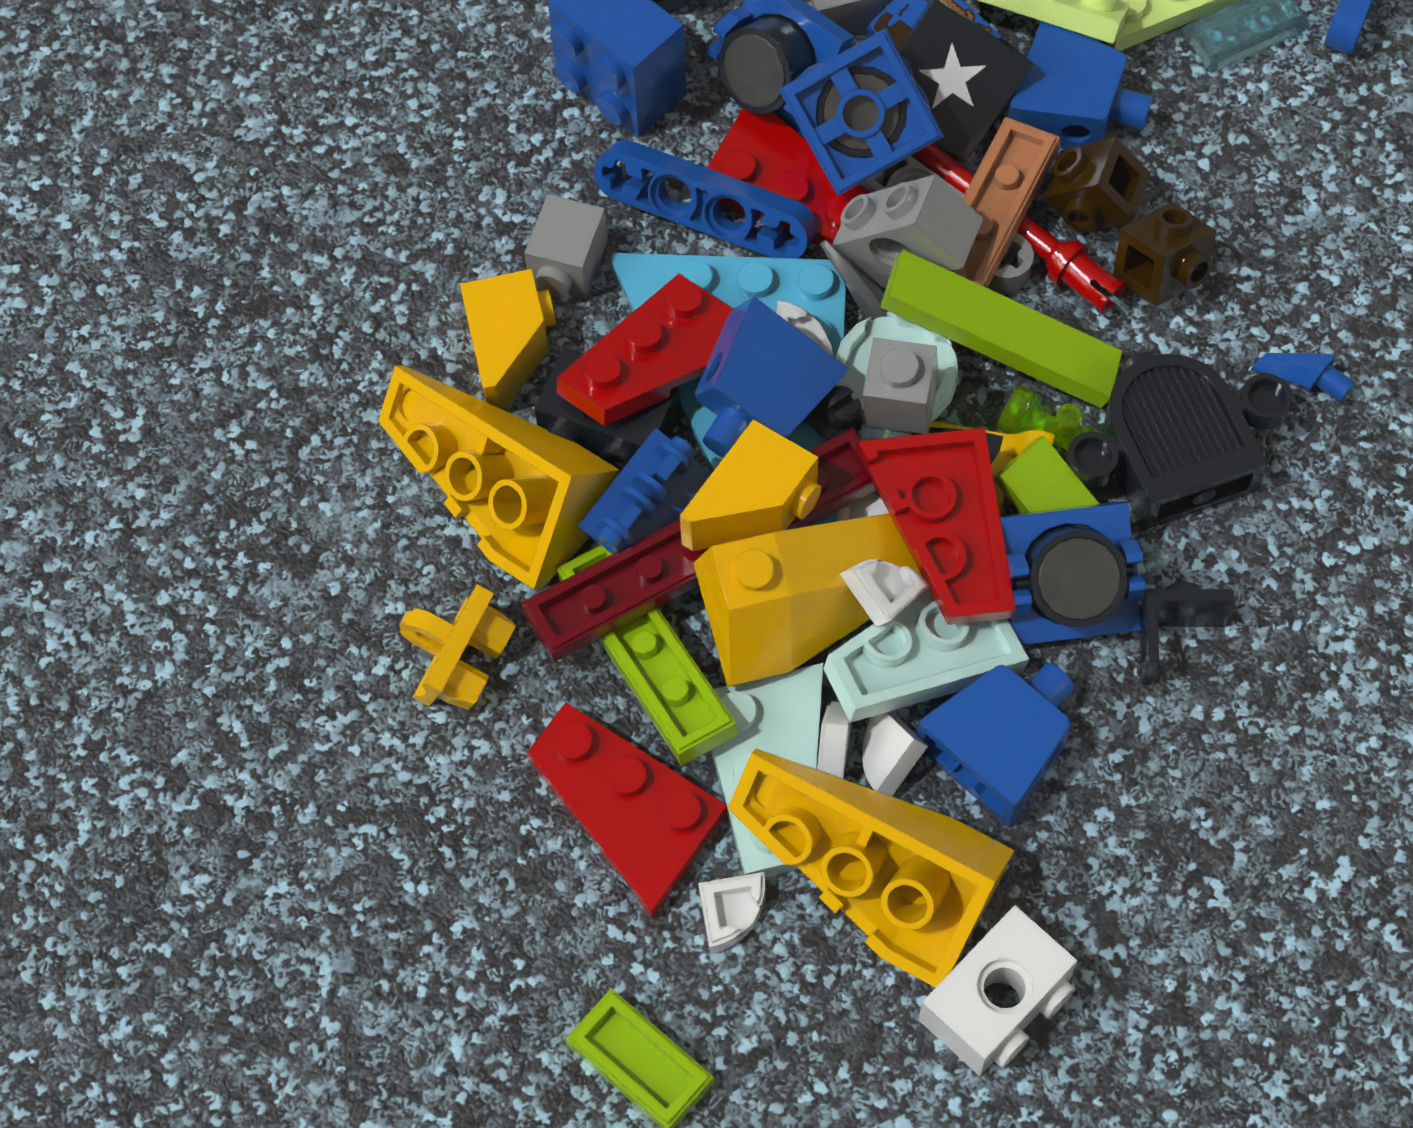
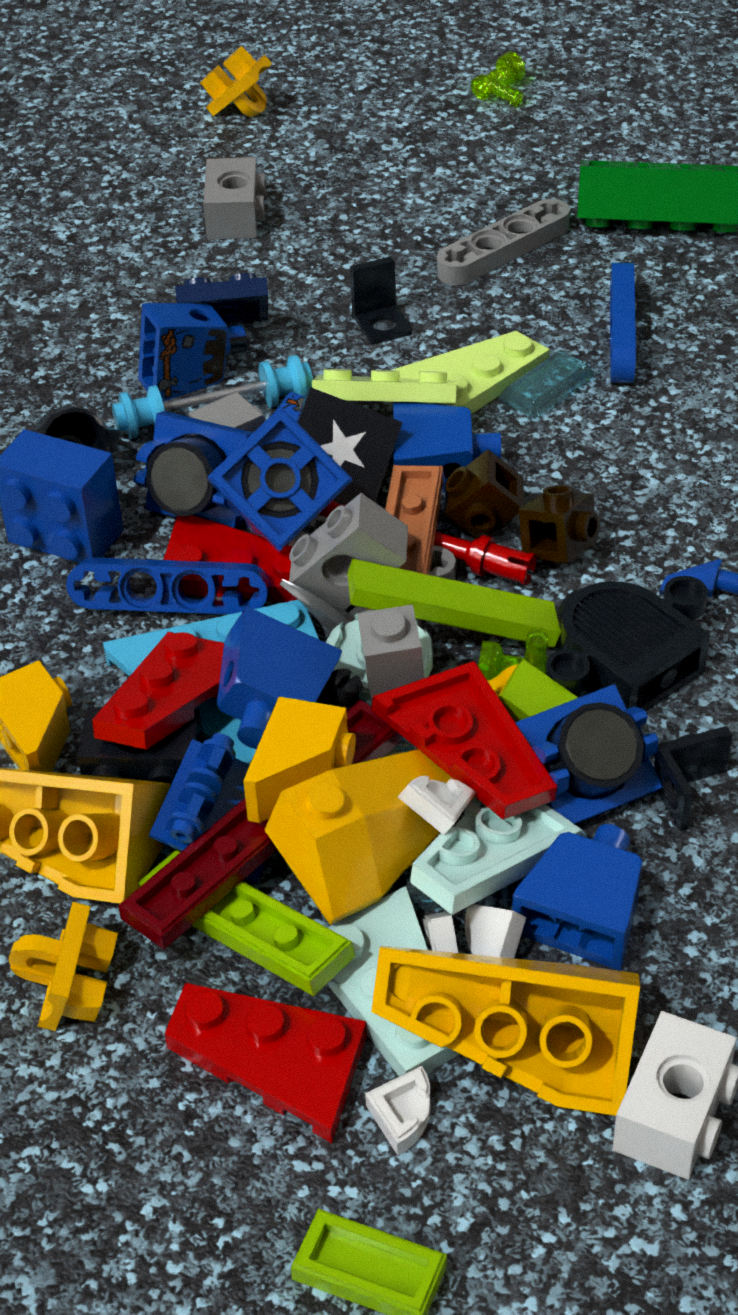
camera: 20 degrees left, 20 degrees down
(566, 246) = (63, 642): light grey brick -> none

